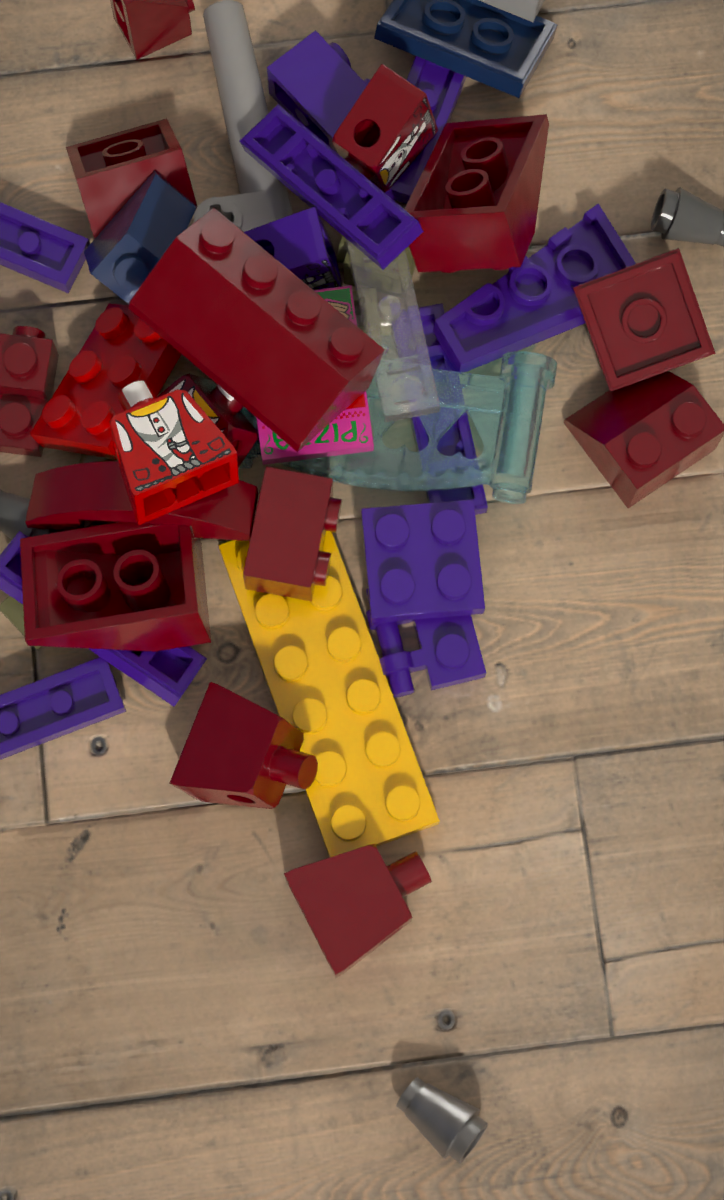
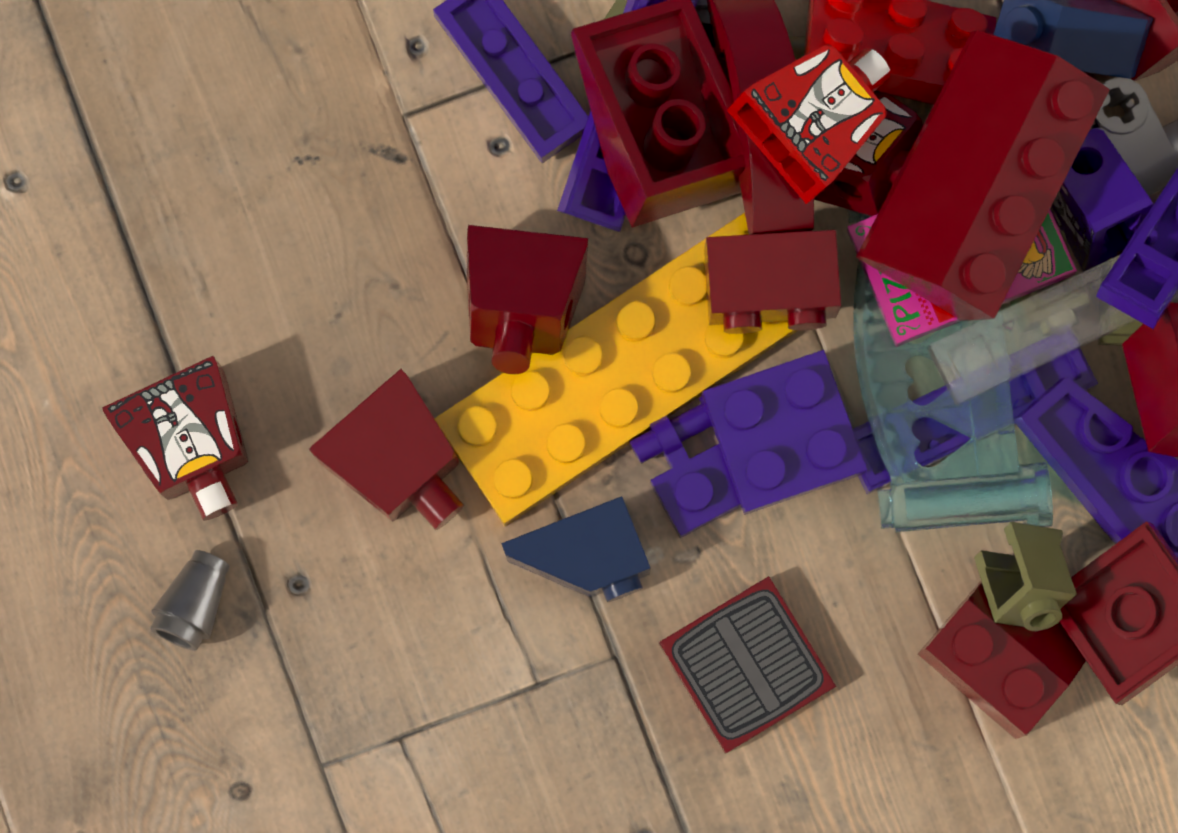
camera: 80 degrees right, 5 degrees up
(291, 1089) = (185, 435): none -> torso
(482, 753) = (586, 552): none -> dark blue slope
(599, 394) = (1031, 584): none -> olive window
(608, 647) = (747, 665): none -> tile

